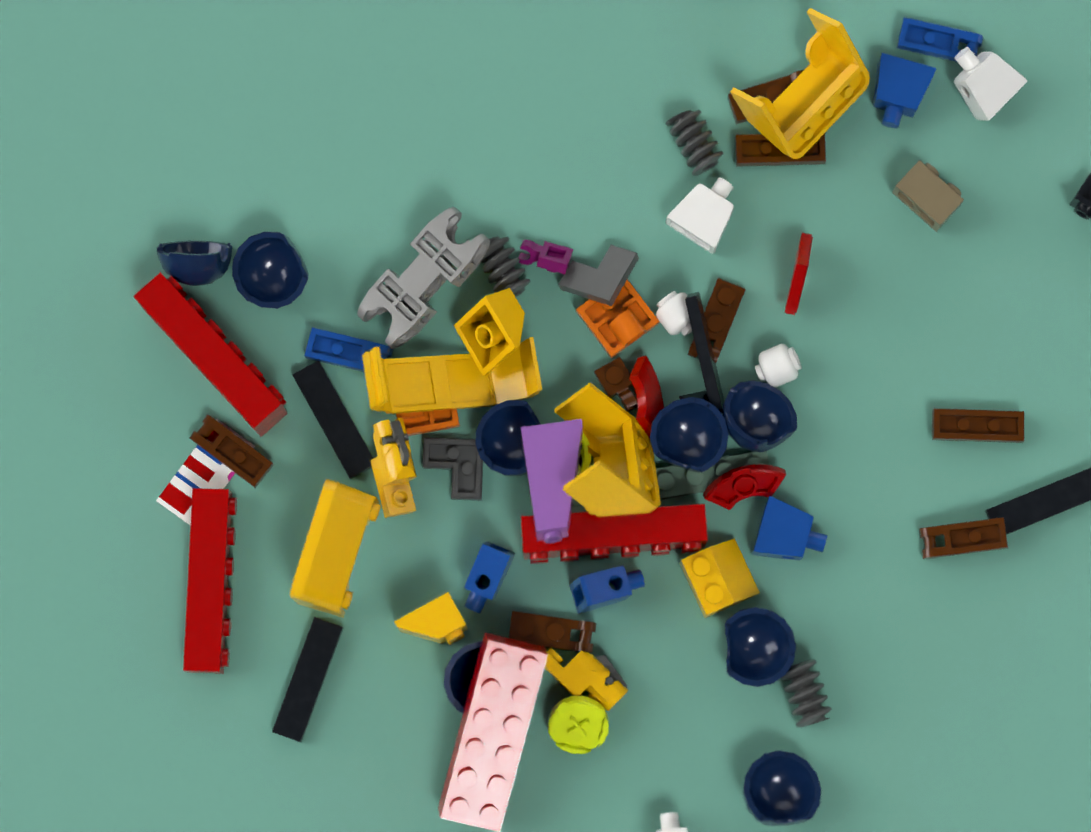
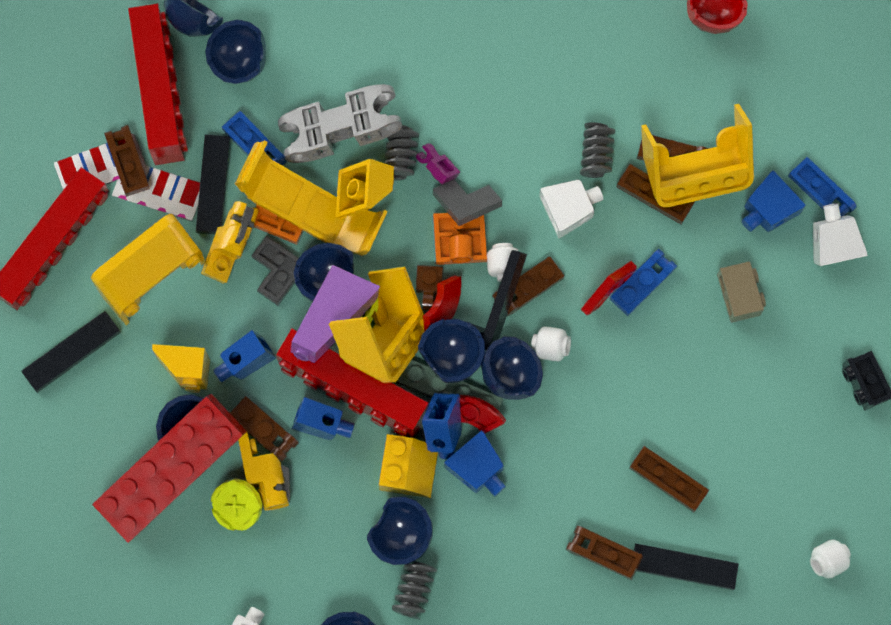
camera: 30 degrees right, 5 degrees down
(294, 458) = (166, 193): none -> white sticker
(733, 527) = (442, 433): none -> blue torso
(826, 246) = (642, 283): none -> blue plate

